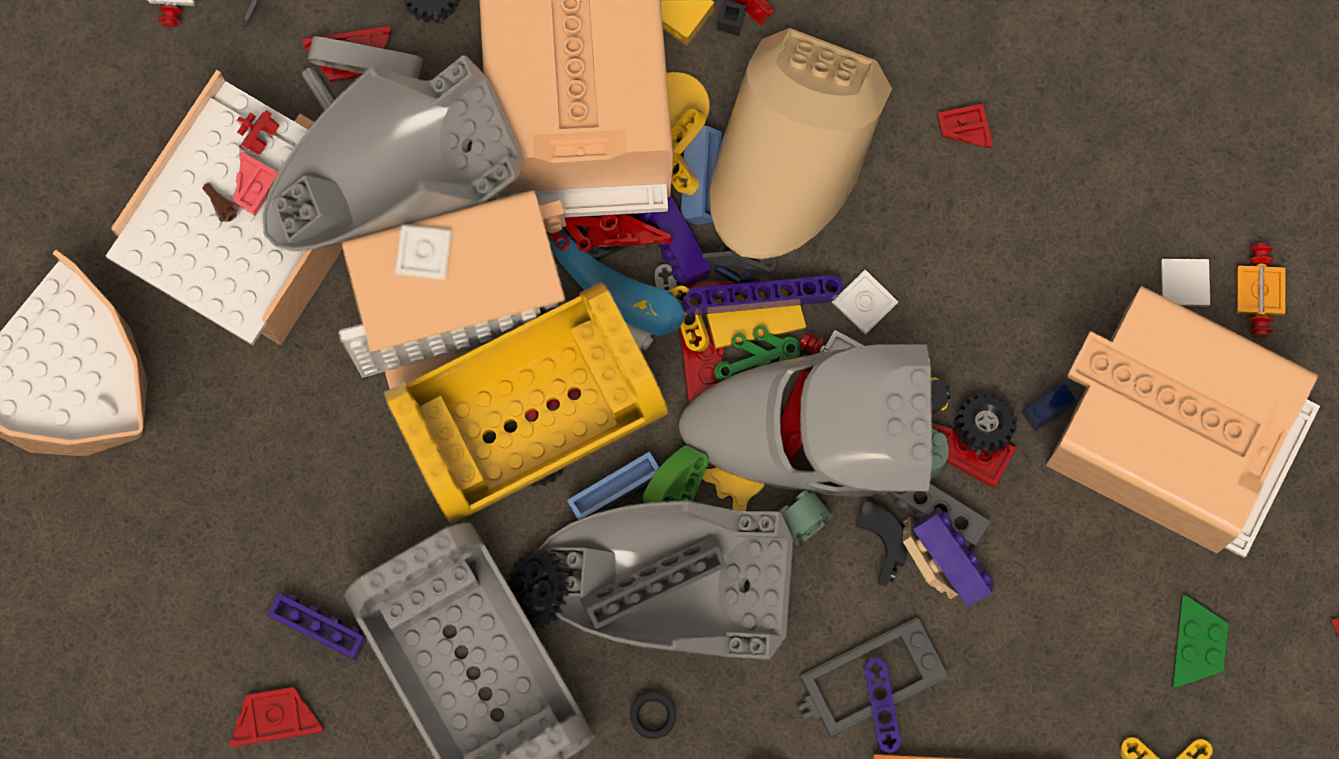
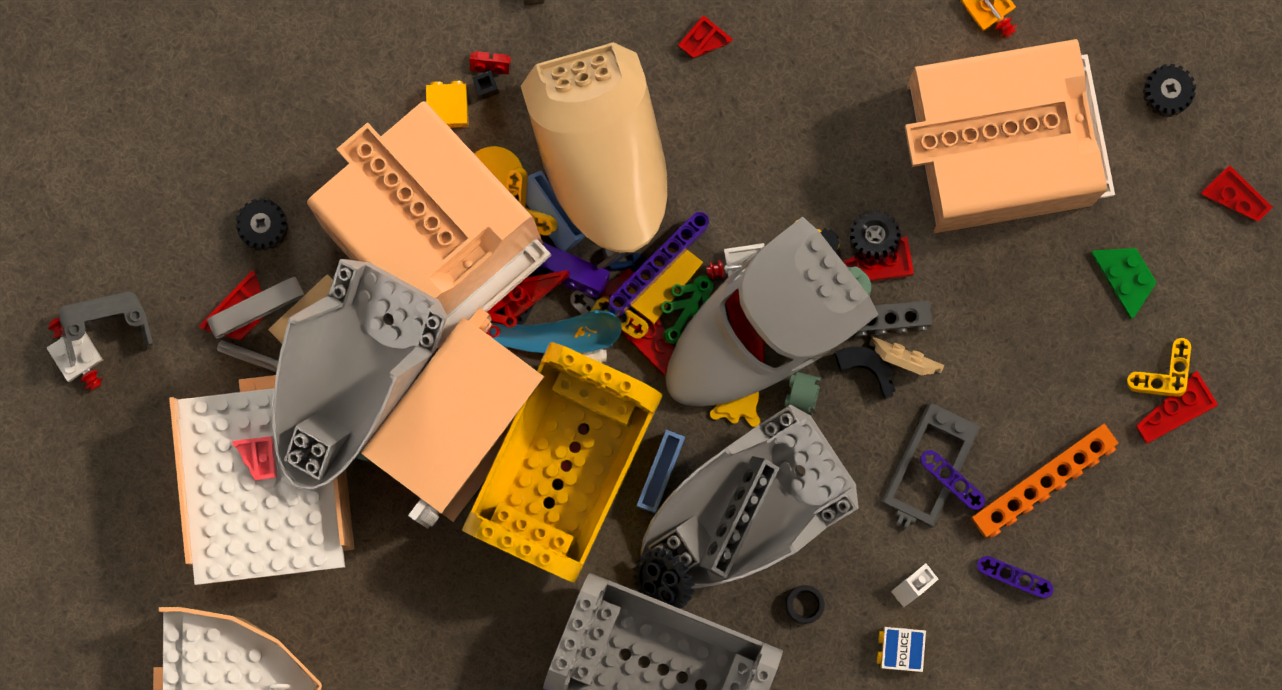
camera: 35 degrees left, 5 degrees up
(224, 208) = (252, 489): reddish brown cone -> none
(263, 123) = (232, 428): red hips -> none
(423, 252) = (423, 418): white tile -> none
(677, 477) = (699, 435): bright green beam -> none
(865, 302) = (729, 214): white tile -> none
(953, 556) = (923, 343): dark purple brick -> none
(1049, 406) = (908, 191): clear blue brick -> none
(1186, 281) = (933, 36): white tile -> none

